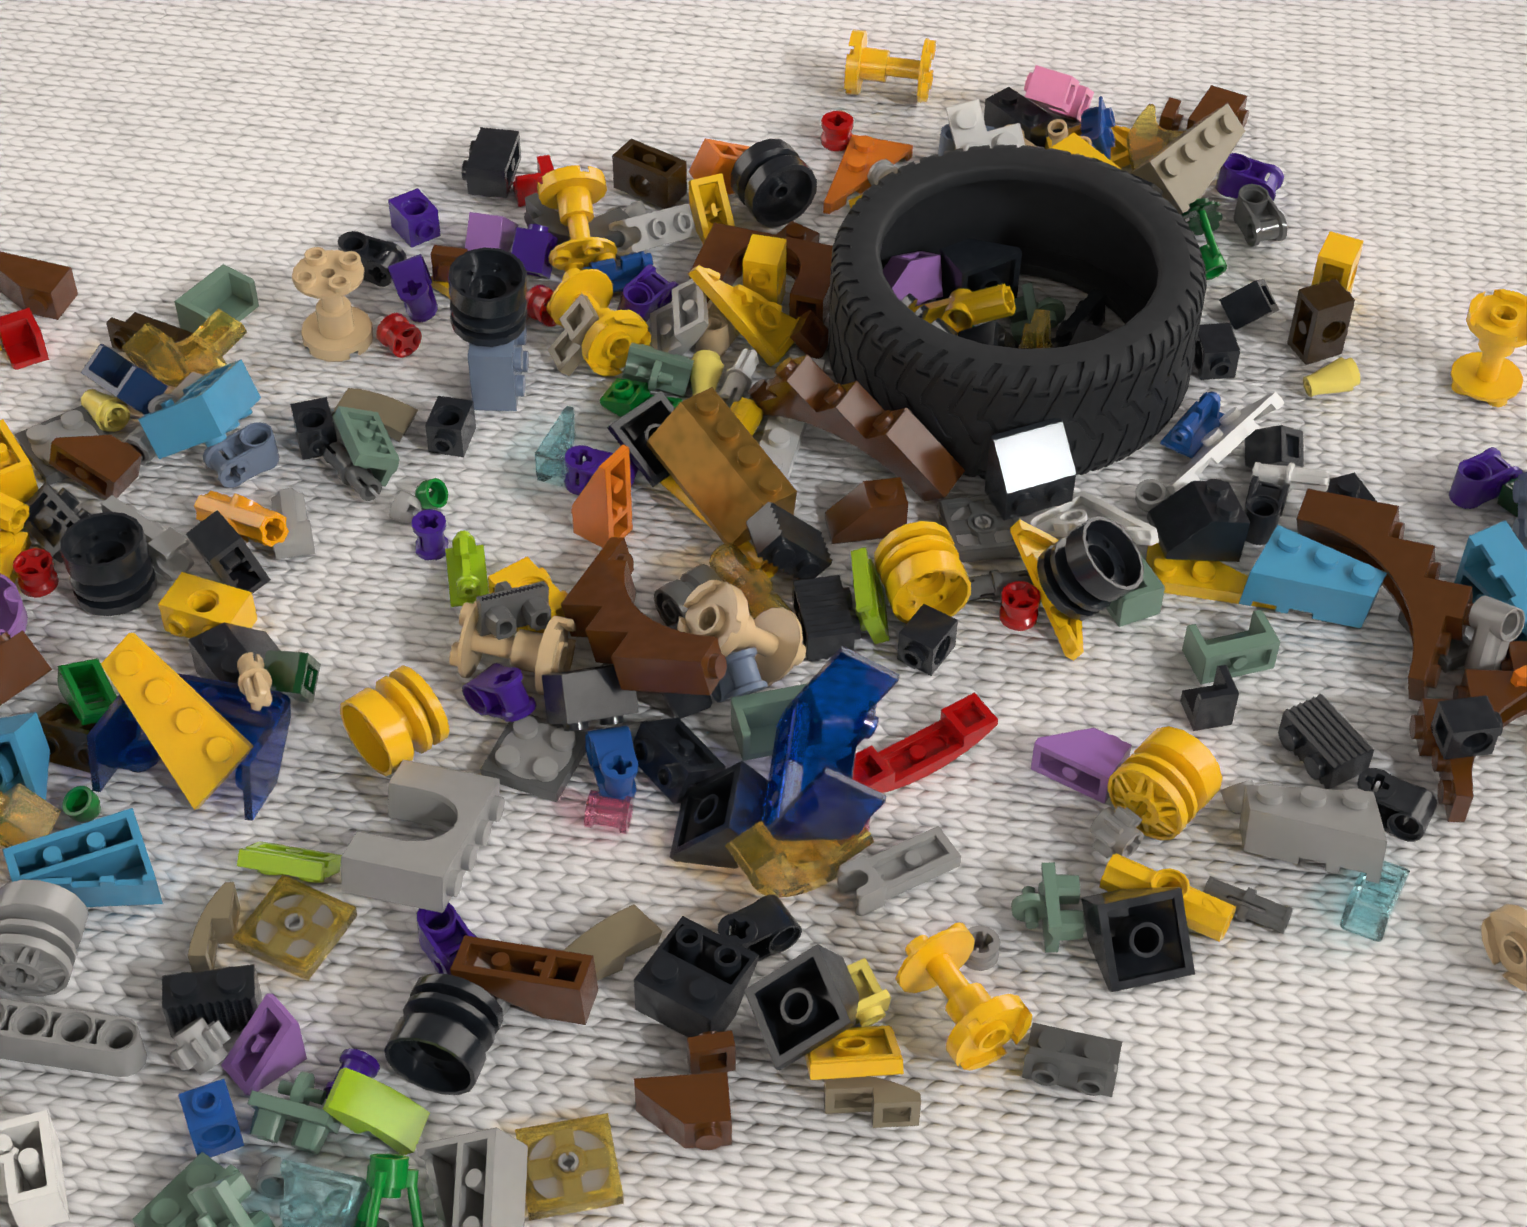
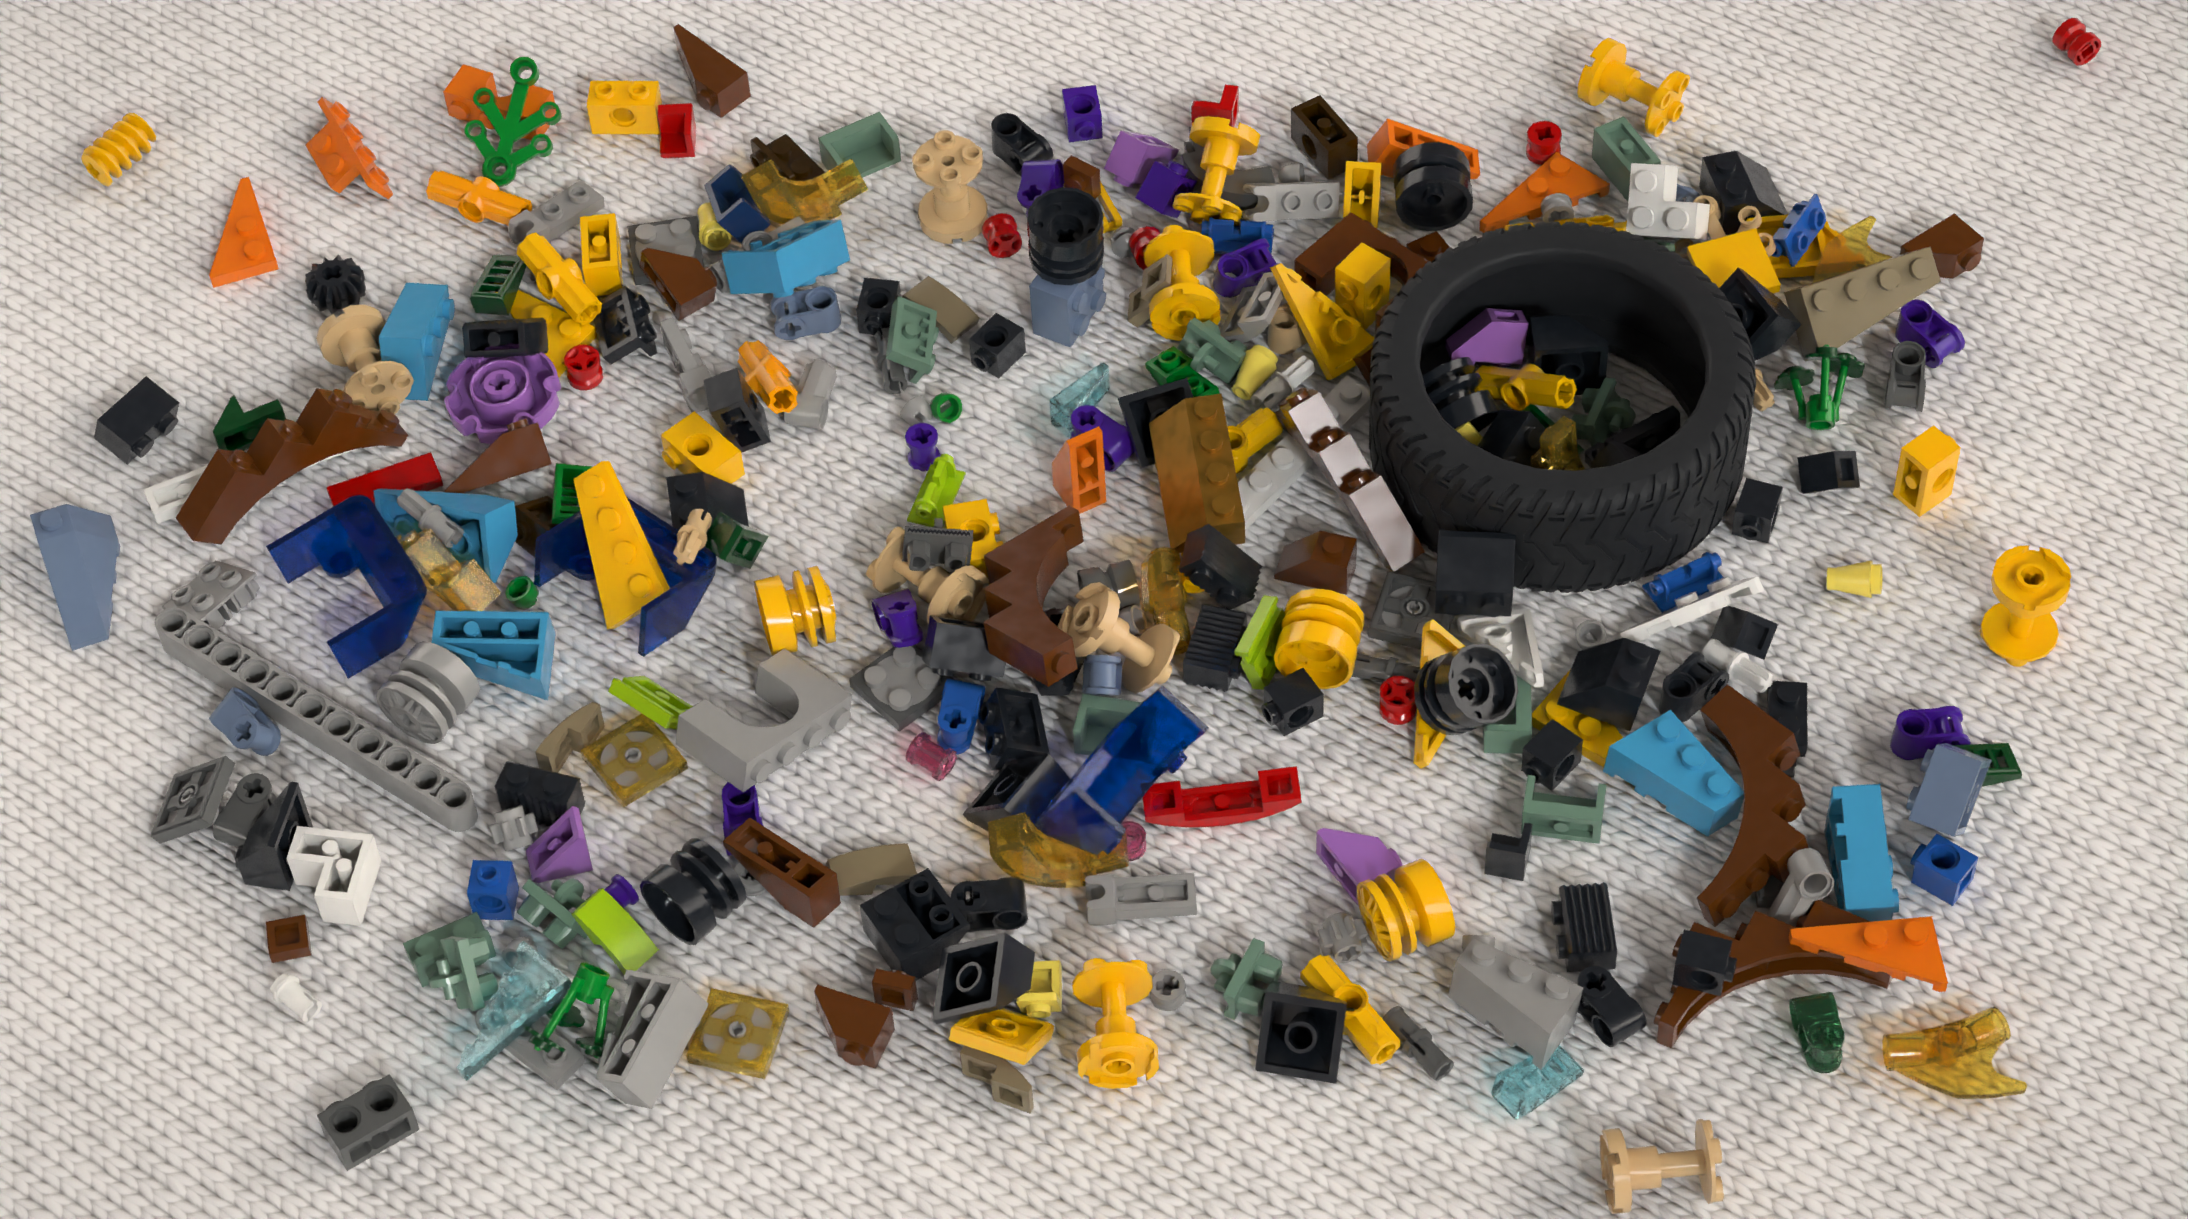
camera: 30 degrees right, 5 degrees up
(108, 563) = (639, 382): black wheel -> none
(492, 162) = (1185, 76): black brick -> none
(913, 120) = (1617, 147): none -> sand green panel
(1057, 93) = (1776, 174): bright pink arch -> none
(1072, 1060) = (1183, 1111): dark grey bracket -> none
(1170, 117) = (1891, 236): reddish brown plate -> none
(1187, 602) = (1551, 754): none -> black brick
(1320, 321) = (1876, 516): dark brown brick -> none

